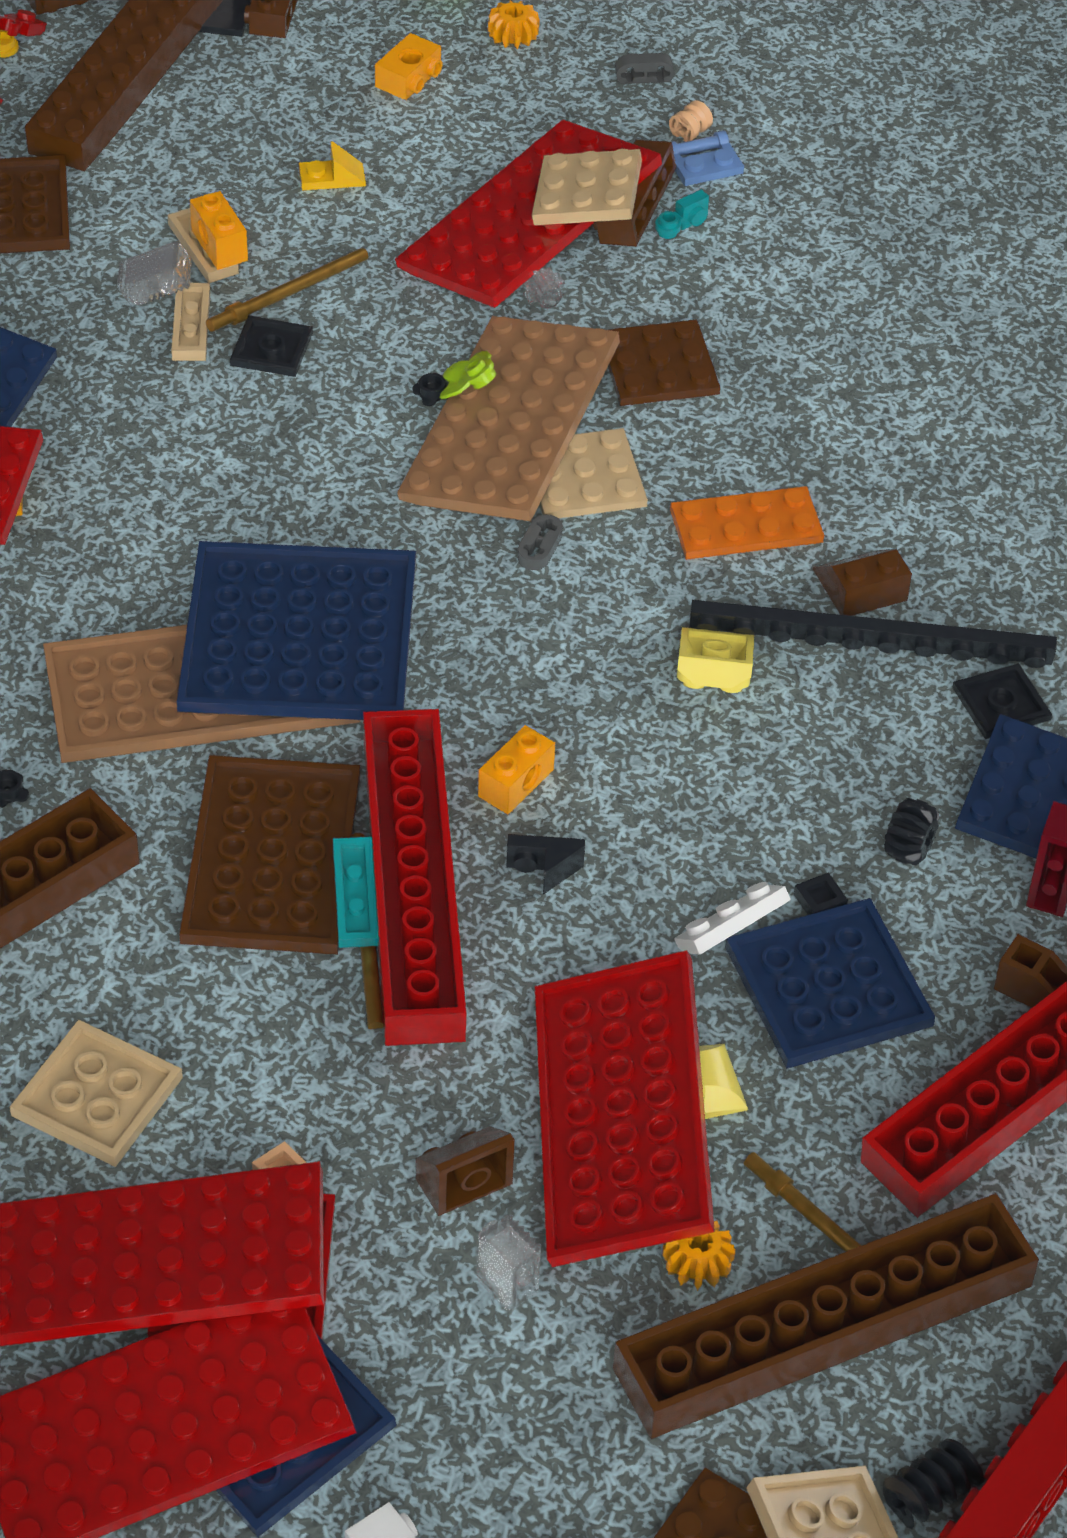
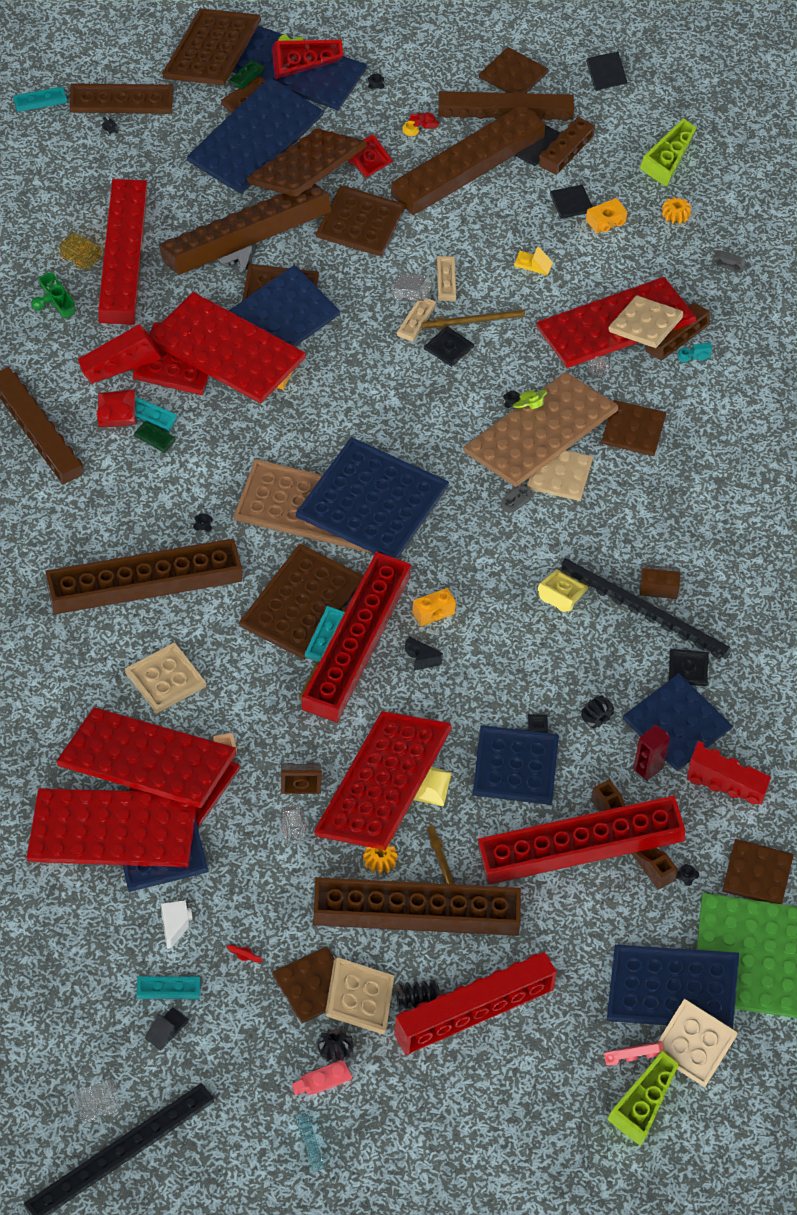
camera: 25 degrees right, 5 degrees up
(218, 230) = (453, 275): light orange brick -> none
(335, 66) = (571, 201): none -> black tile
(693, 119) = (734, 300): light nougat wheel -> none
(707, 165) = (728, 328): medium blue plate -> none
(731, 917) = (489, 716): white plate -> none
(746, 522) = (623, 528): orange plate -> none

